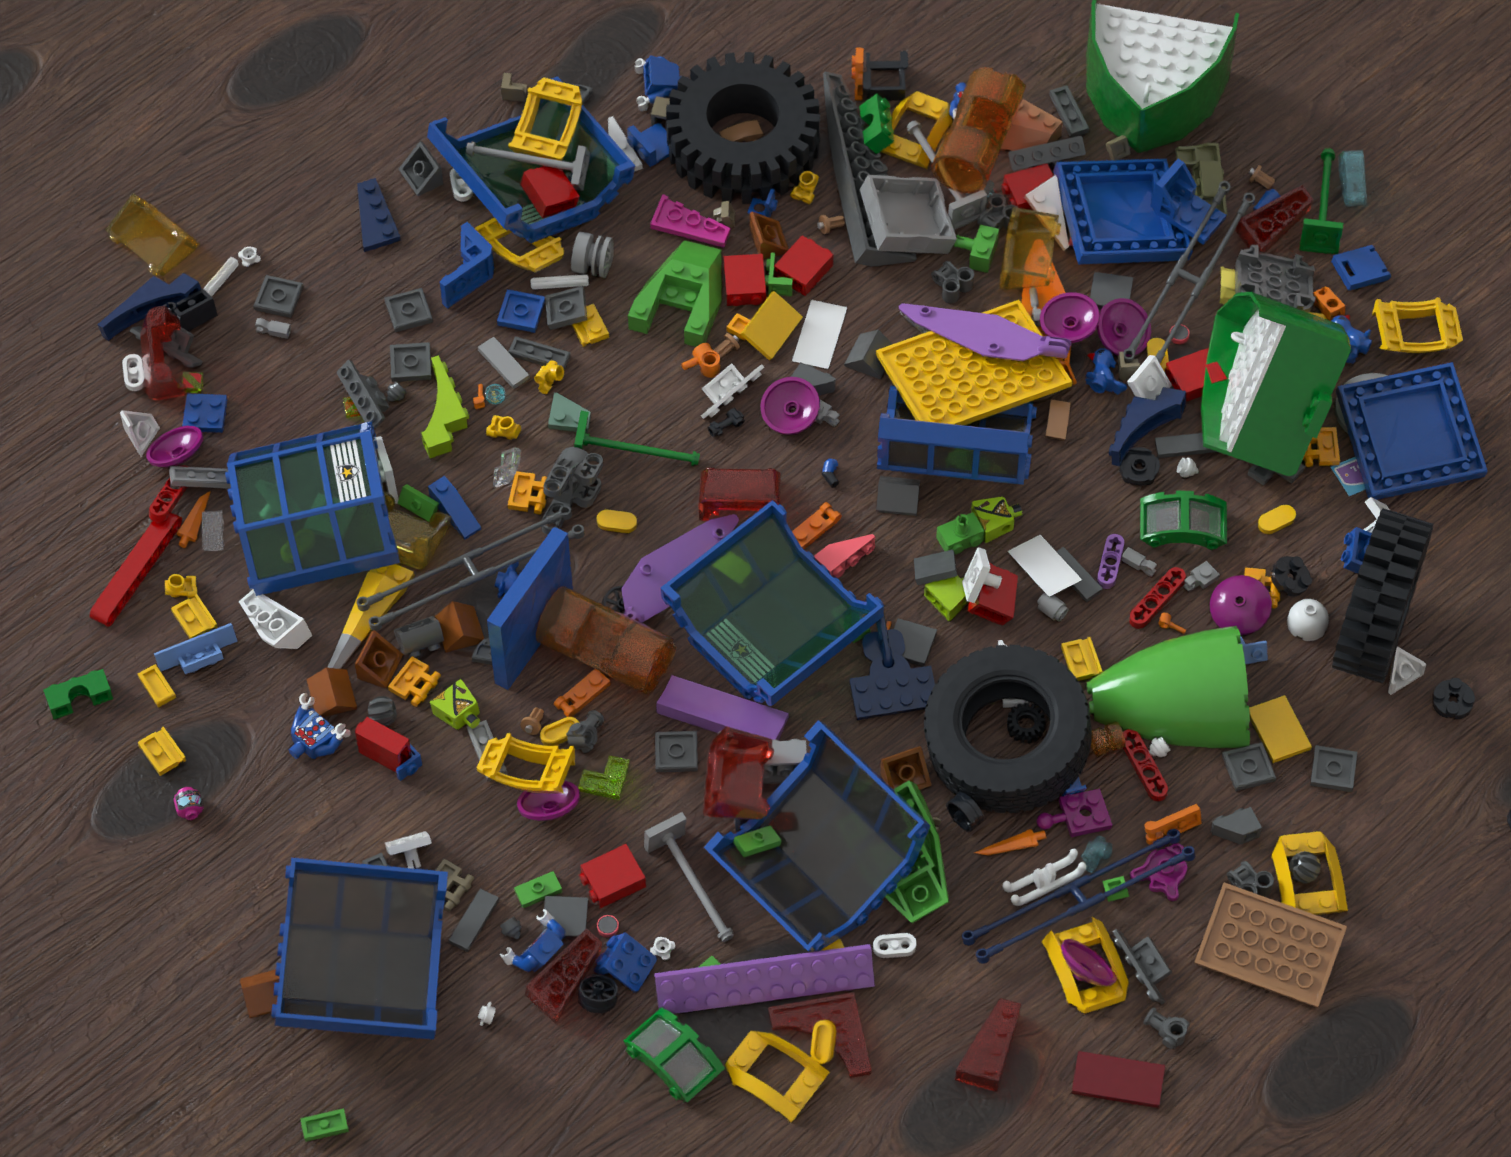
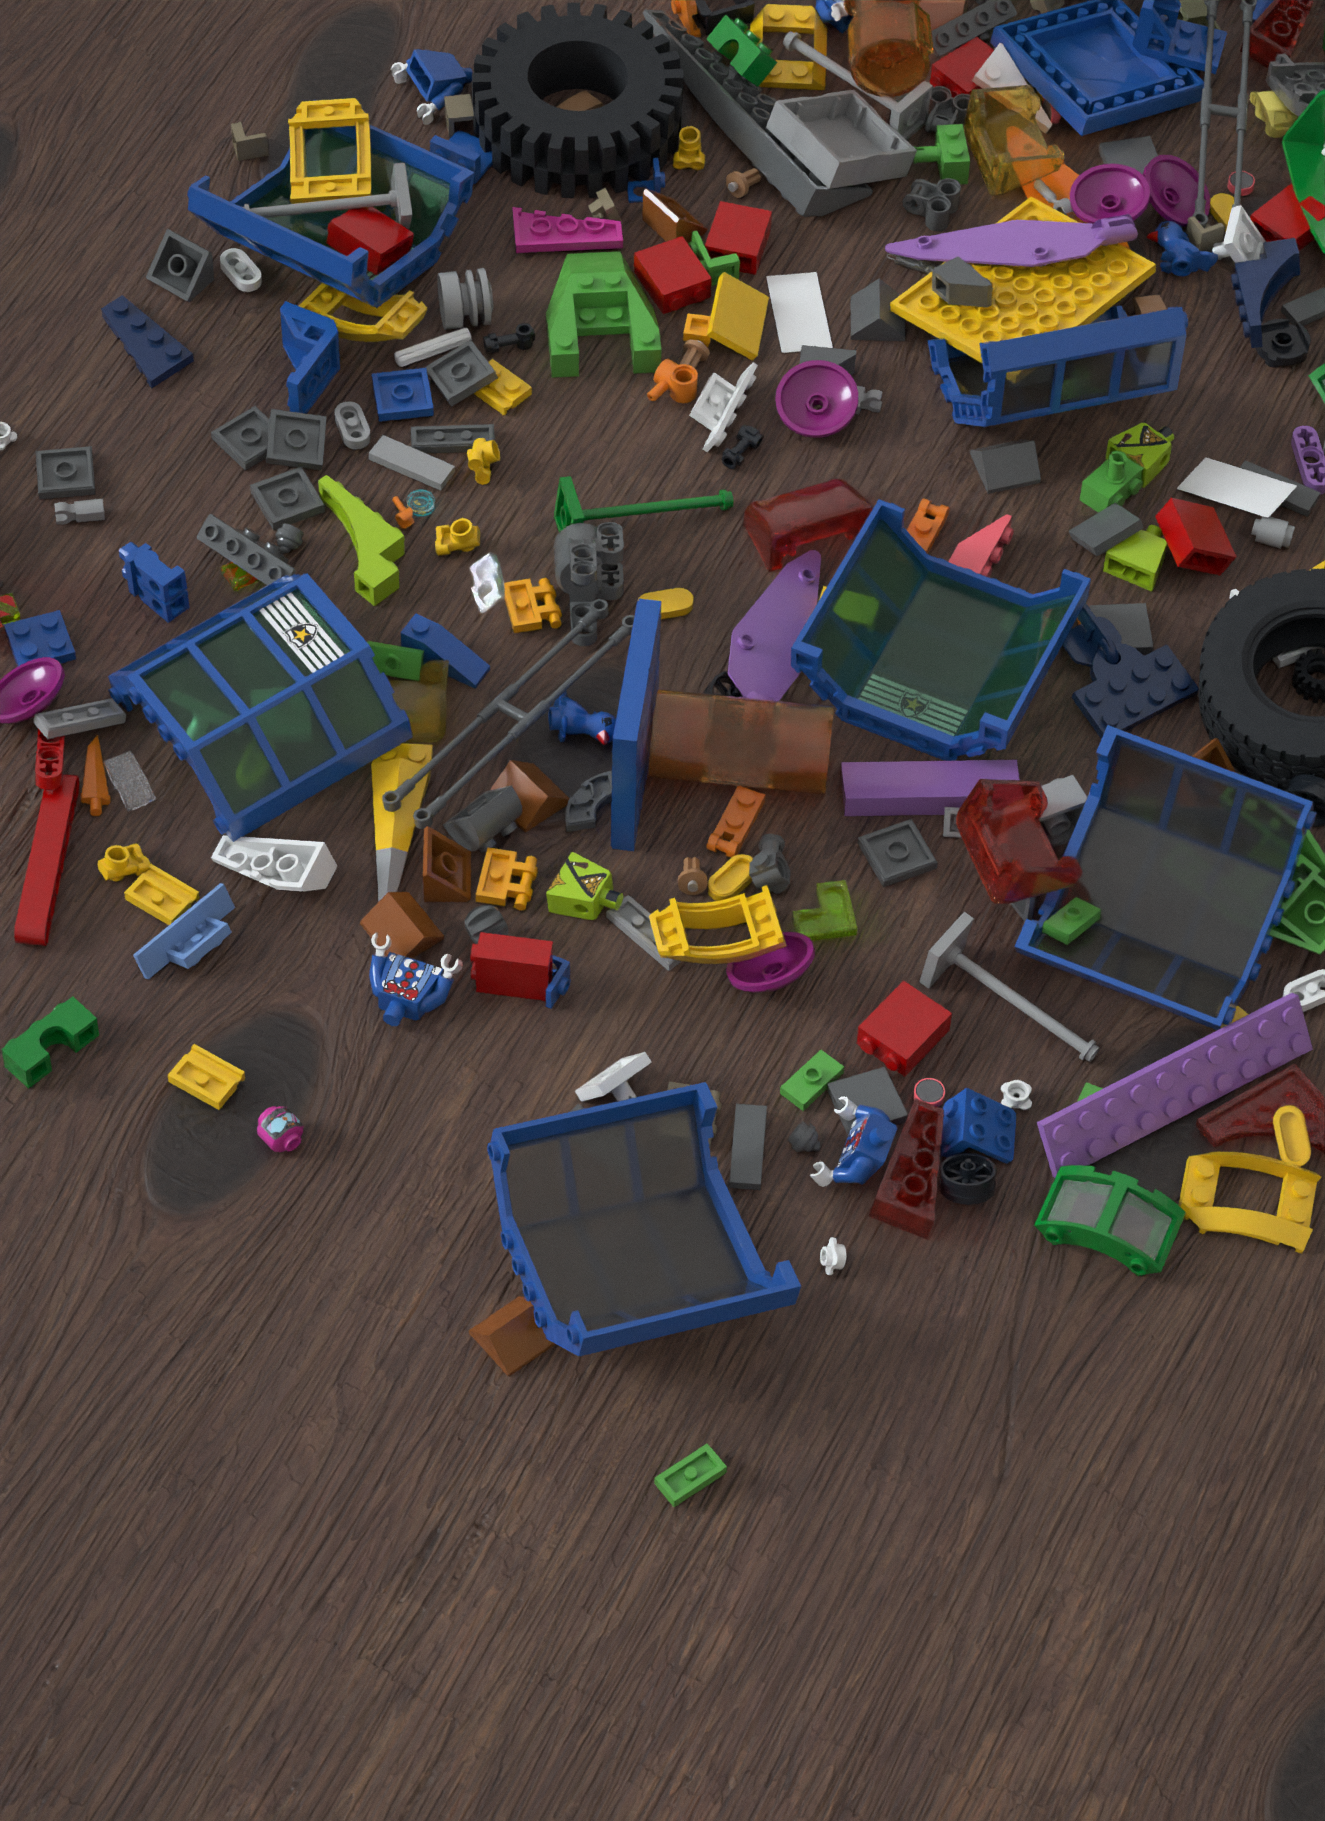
camera: 25 degrees left, 5 degrees down
(156, 685) = (153, 998): yellow tile -> none
(294, 402) = (155, 582): none -> blue hips
(433, 322) = (296, 439): none -> dark grey plate
(477, 324) = (355, 430): none -> light grey plate
(565, 414) = (528, 499): sand green wing -> none
(621, 293) = (523, 338): none -> black bar
(828, 470) = (903, 464): arm -> none
(926, 353) = (961, 284): none -> dark grey slope
(978, 575) = (1177, 513): white tile -> none

